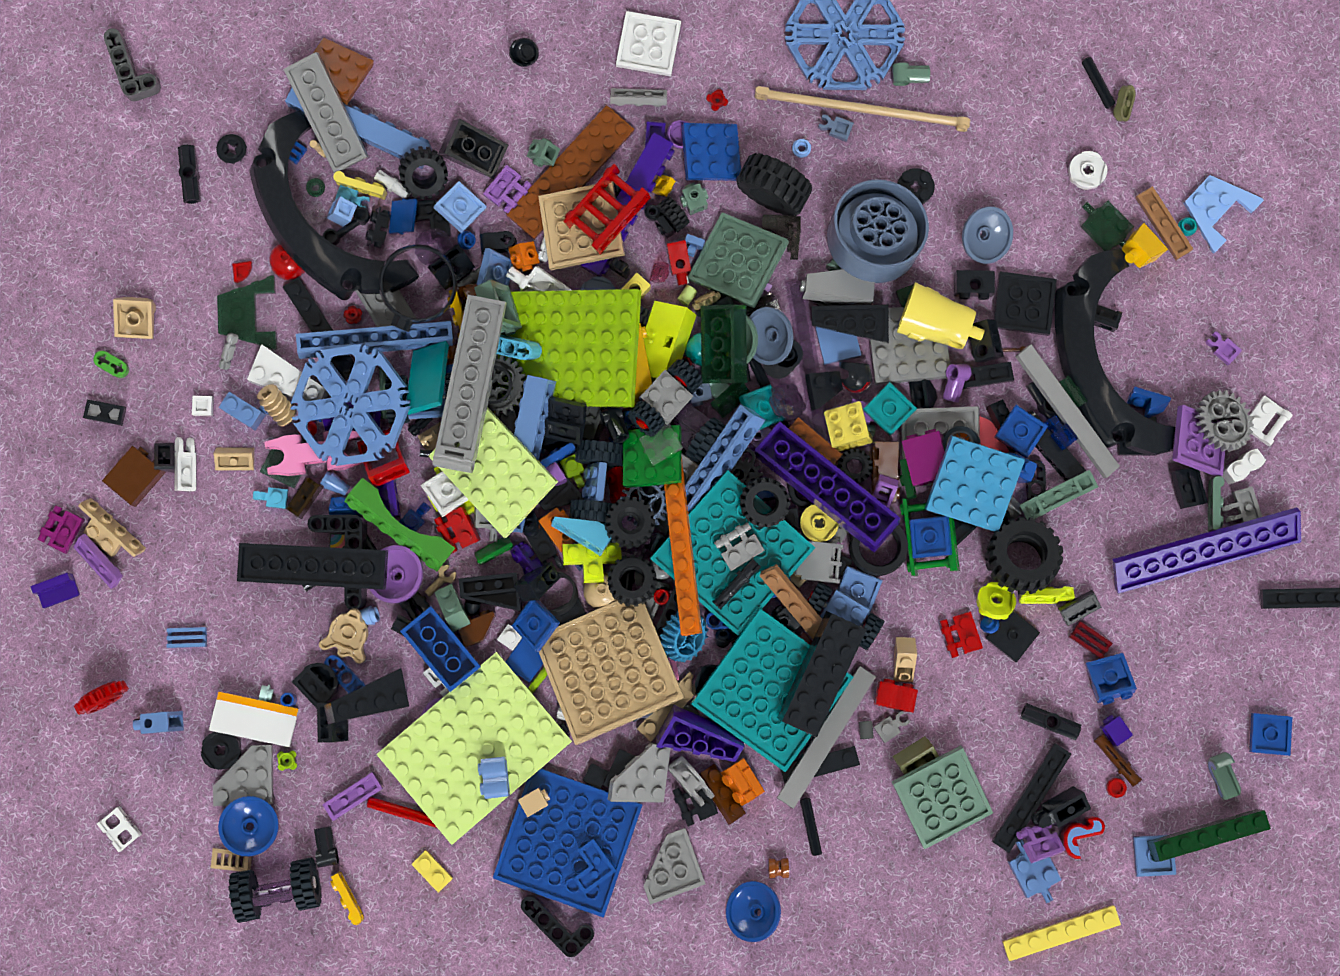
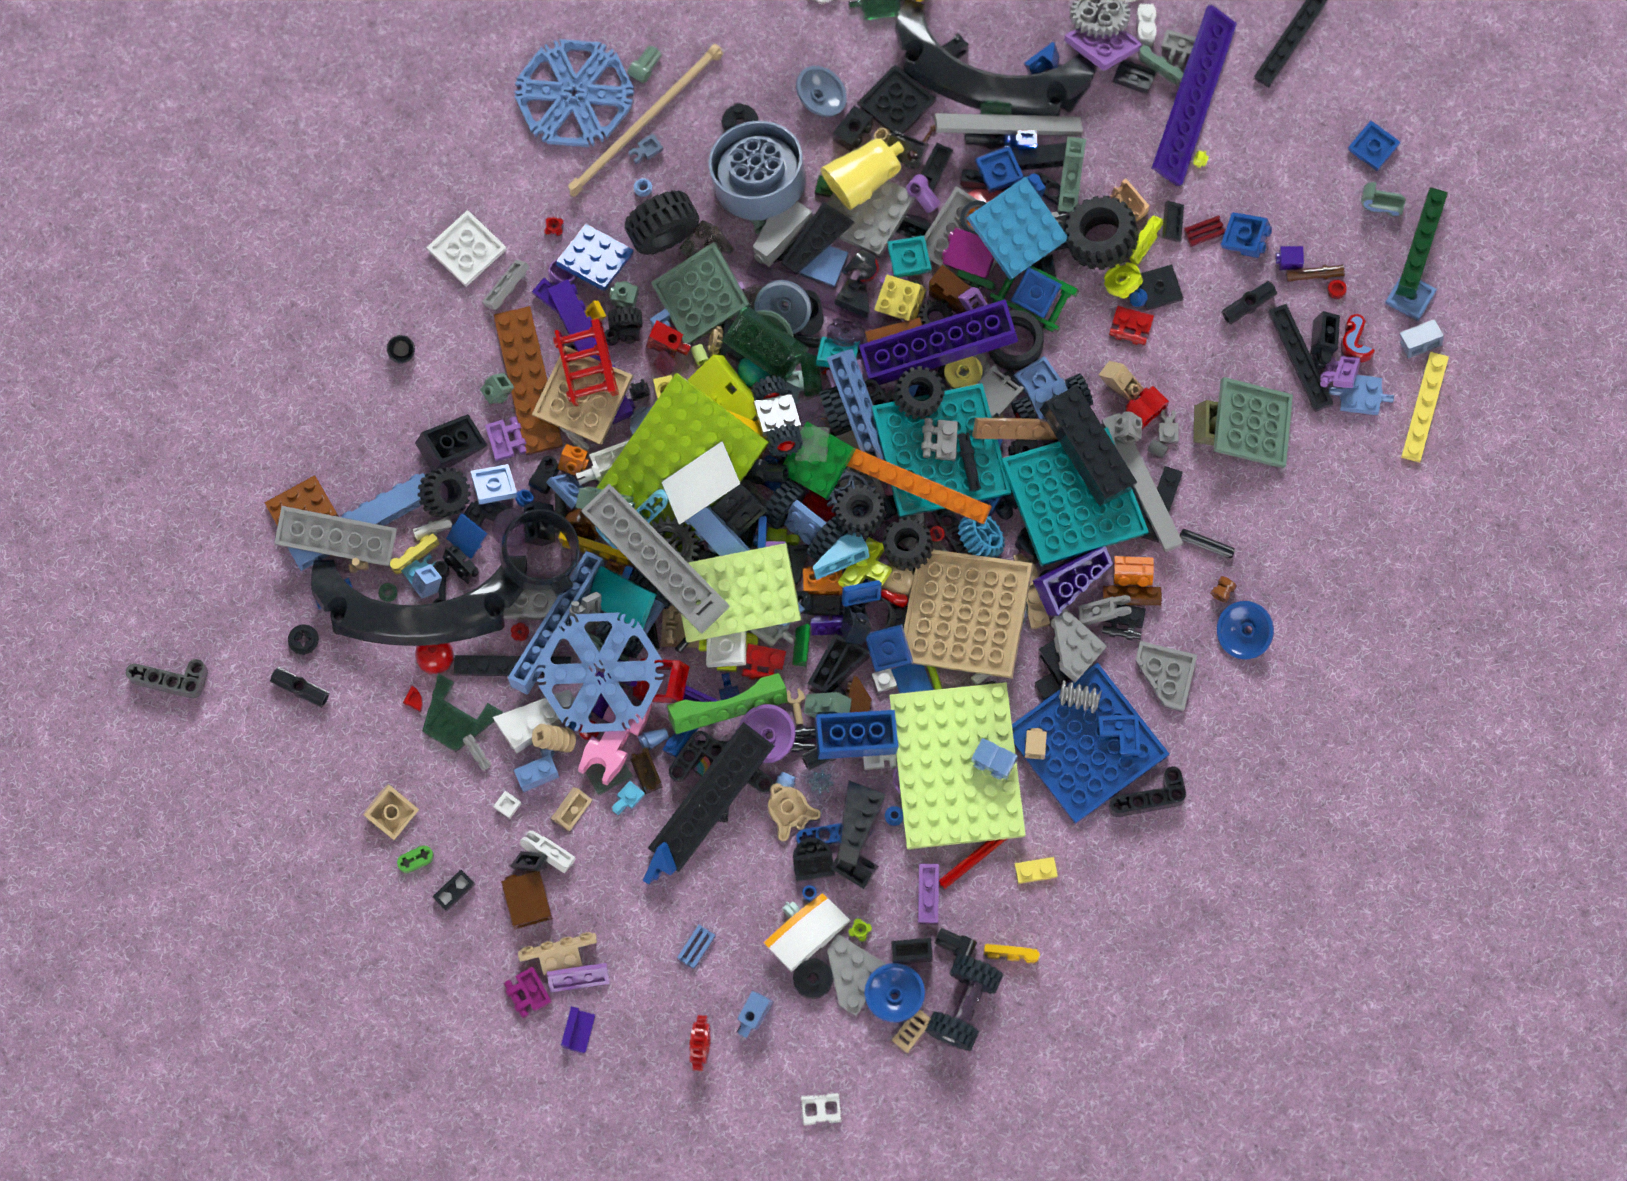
camera: 50 degrees left, 10 degrees down
(231, 564) = (660, 862): none -> blue slope
(293, 816) = (912, 951): none -> black piece
(382, 643) = (816, 780): none -> clear light blue gear
(395, 719) = (894, 822): none -> blue plate
(400, 359) = (590, 605): none -> light grey plate
(561, 375) = (700, 483): none -> white sticker
(563, 571) = (861, 593): none -> blue plate
(582, 600) = (895, 598): none -> red arm
(599, 811) = (1079, 697): none -> light grey piece
(864, 694) = (1128, 427): none -> light grey brick
(984, 309) = (882, 134): none -> tan plate
(1073, 558) = (1132, 198): none -> light nougat hinge
(1120, 890) = (1421, 338): none -> hinge
(1153, 593) = (1200, 159): none -> neon yellow plate

